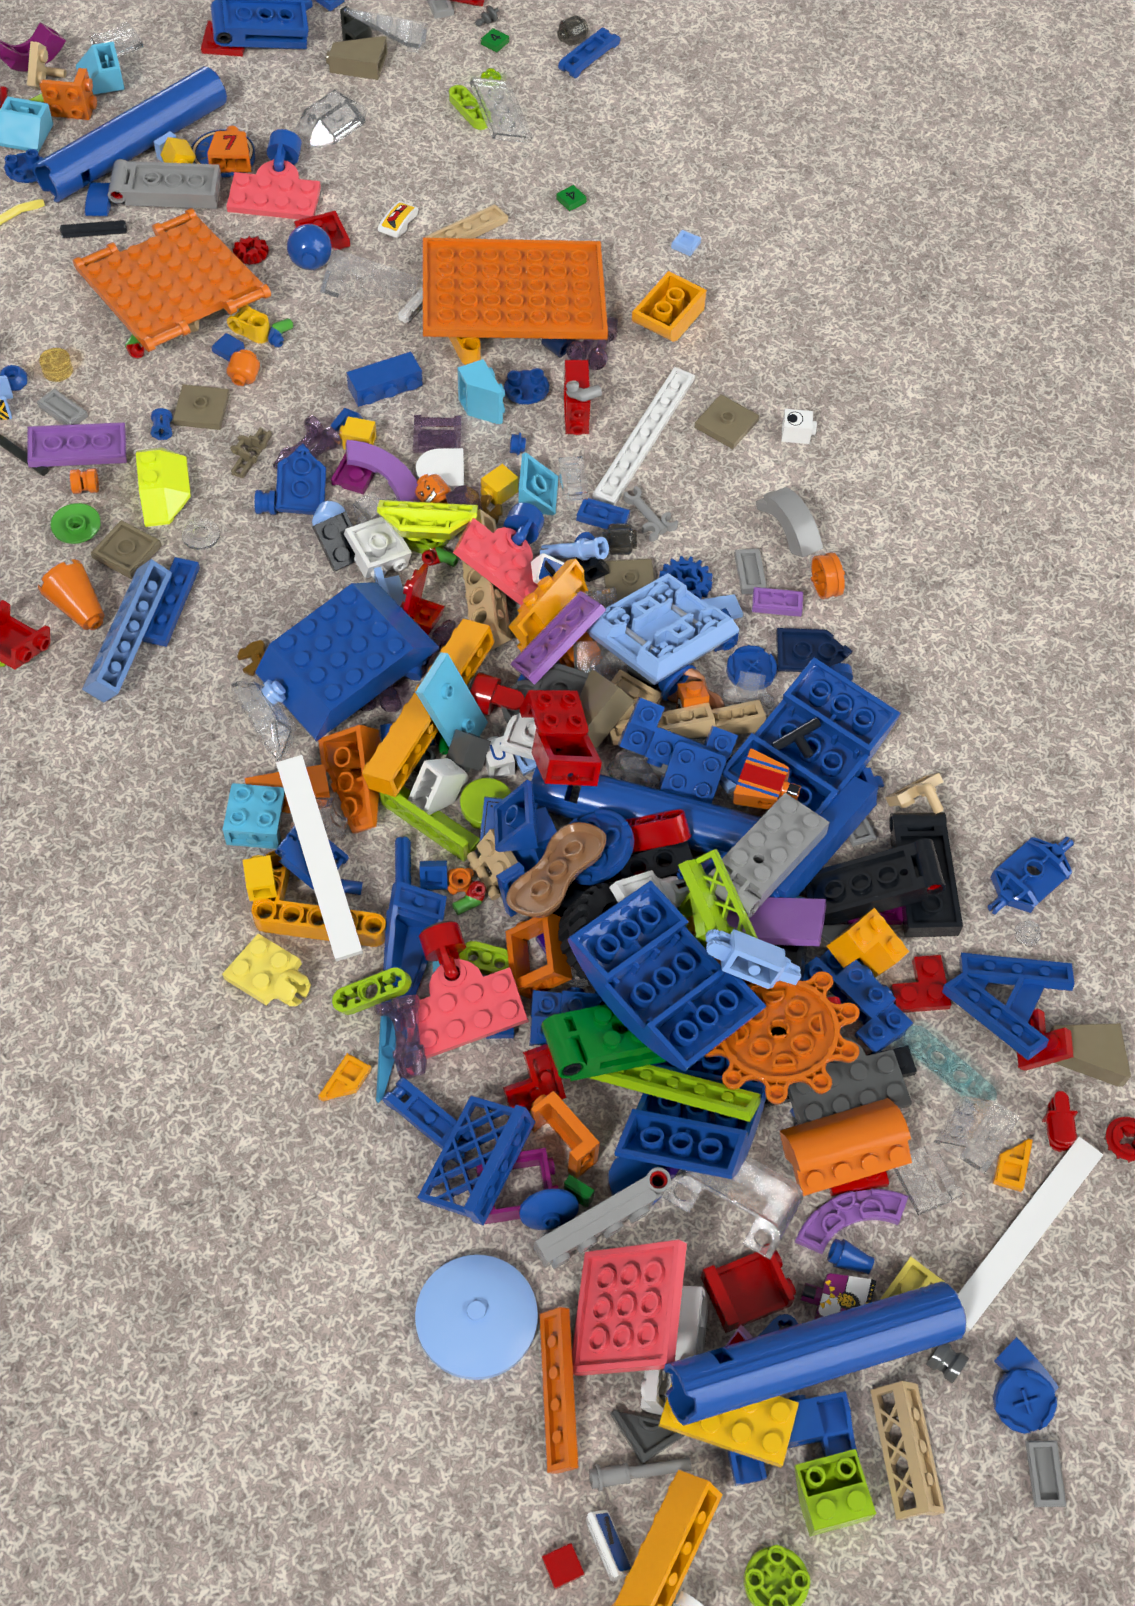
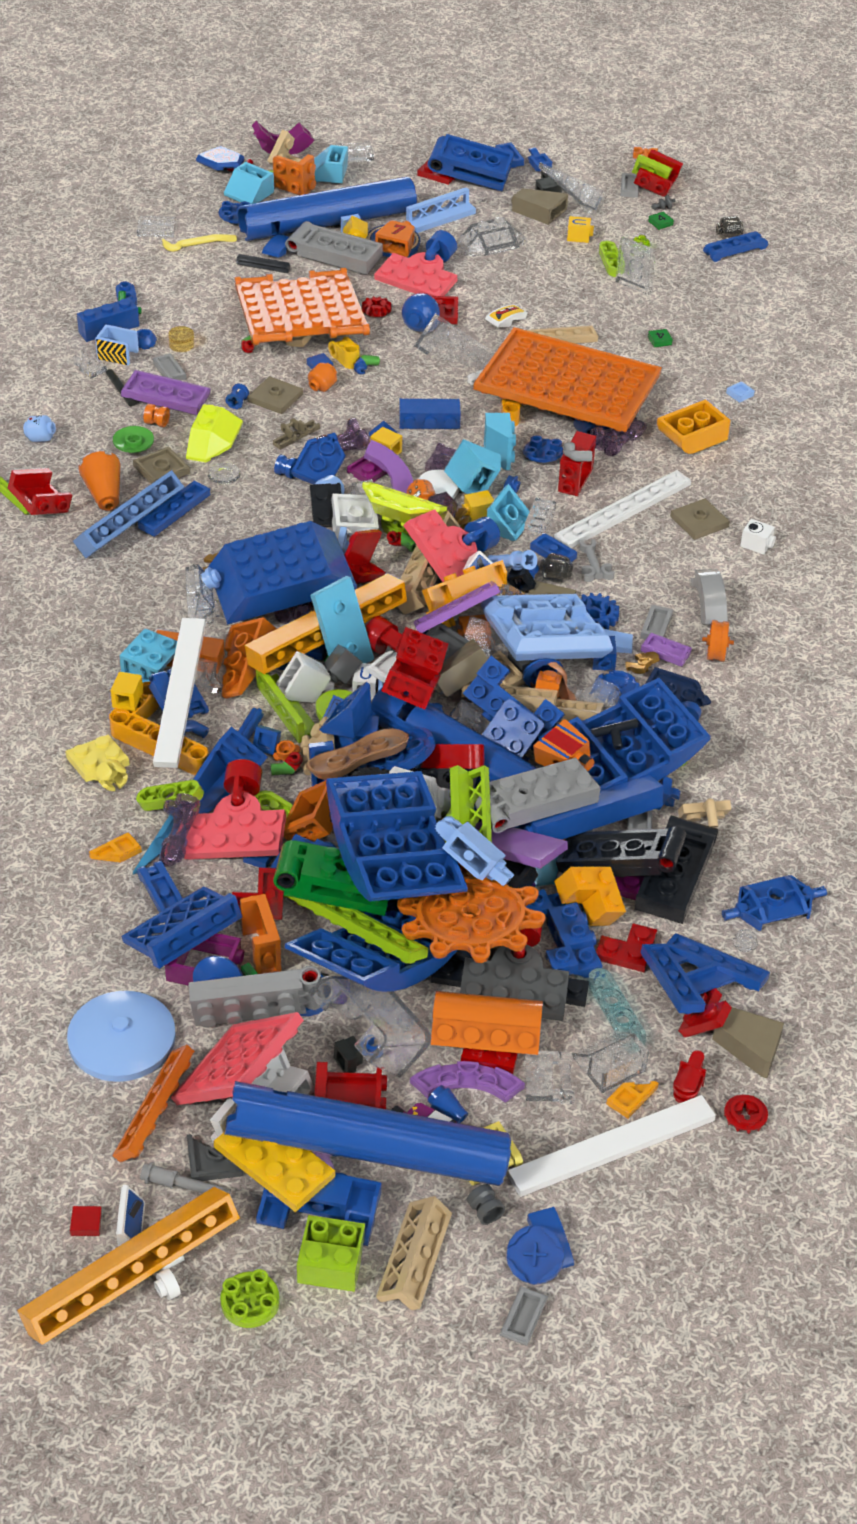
camera: 25 degrees right, 15 degrees down
(256, 101) = (438, 215): none -> light blue fence
(418, 79) = (579, 229): none -> yellow brick
(476, 442) = (473, 467): none -> medium azure slope
(723, 1236) = (347, 1054): none -> pearl dark grey piece
(764, 623) = (645, 660): none -> pearl gold piece

